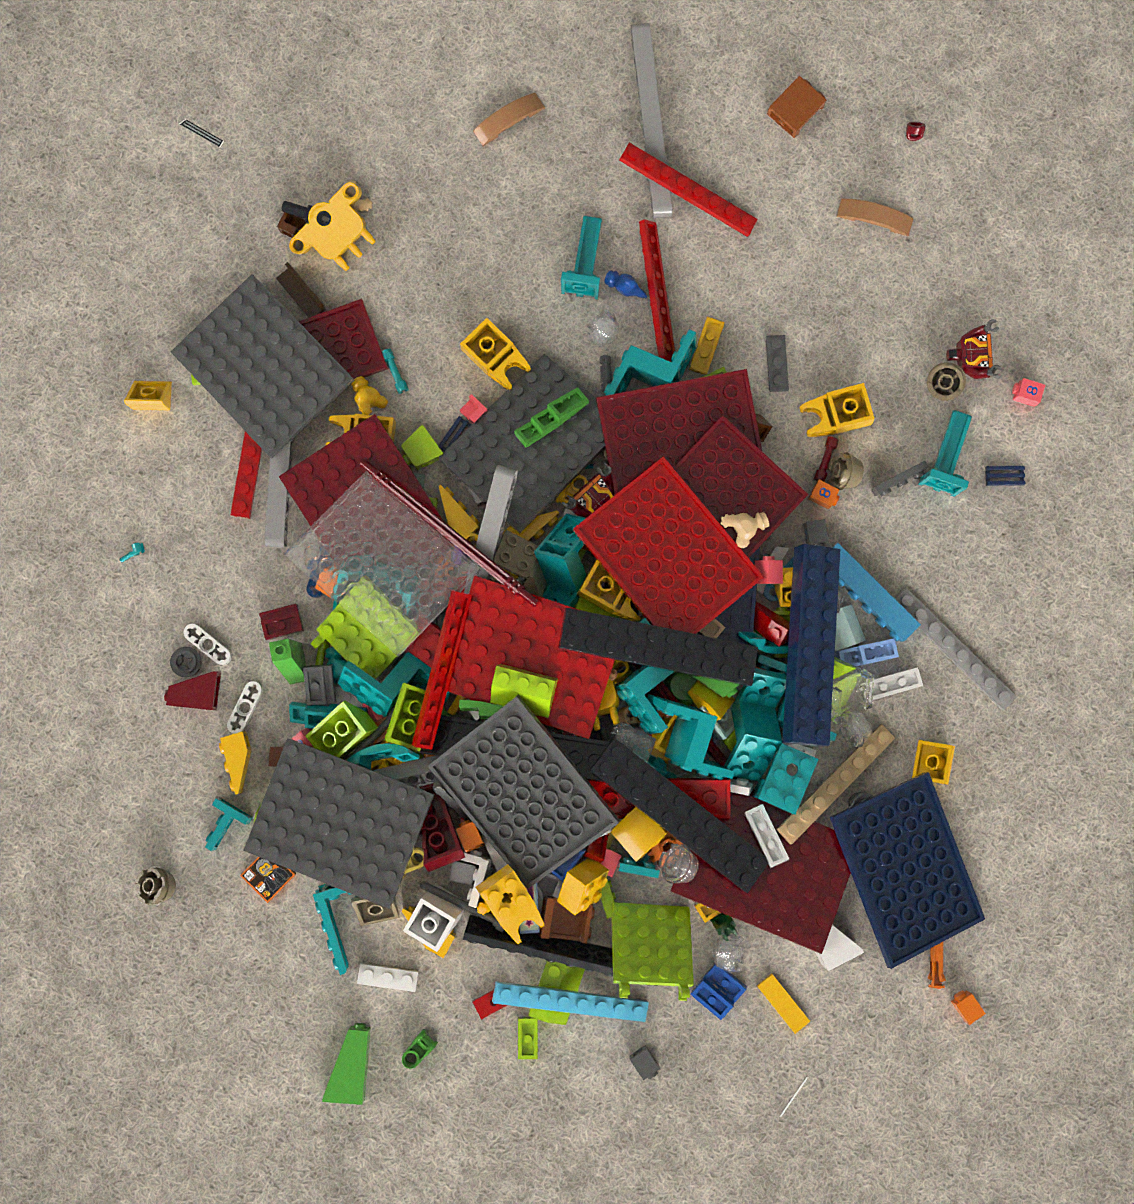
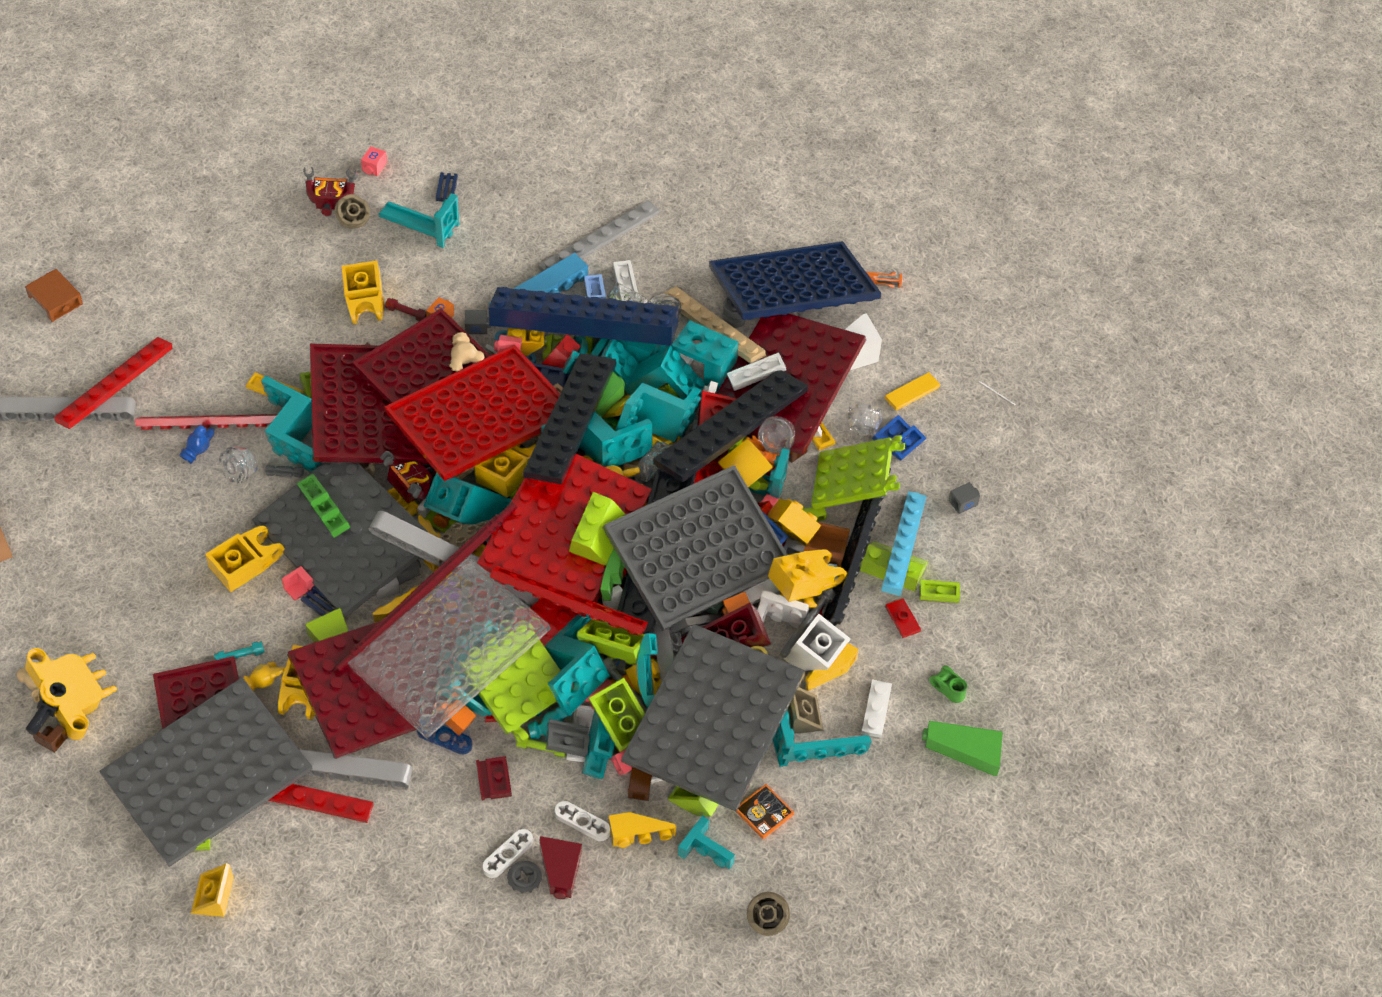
camera: 90 degrees left, 30 degrees down
(137, 548) = (388, 919): teal hand -> none
(289, 659) = (537, 756): bright green slope -> none
(300, 292) = (128, 731): dark brown panel -> none
(462, 872) = (775, 628): light grey panel -> none
(582, 279) = (183, 478): teal bracket -> none
(724, 925) = (836, 424): dark green plate -> none
(777, 363) = (304, 336): dark grey plate -> none
(845, 471) = (421, 292): dark tan cone -> none
(875, 214) = (177, 250): medium nougat slope -> none
(900, 479) = (436, 257): dark grey plate -> none
(915, 128) = (102, 211): dark red tile -> none
(935, 759) = (697, 258): yellow slope -> none
(967, 1006) = (919, 260): orange brick -> none

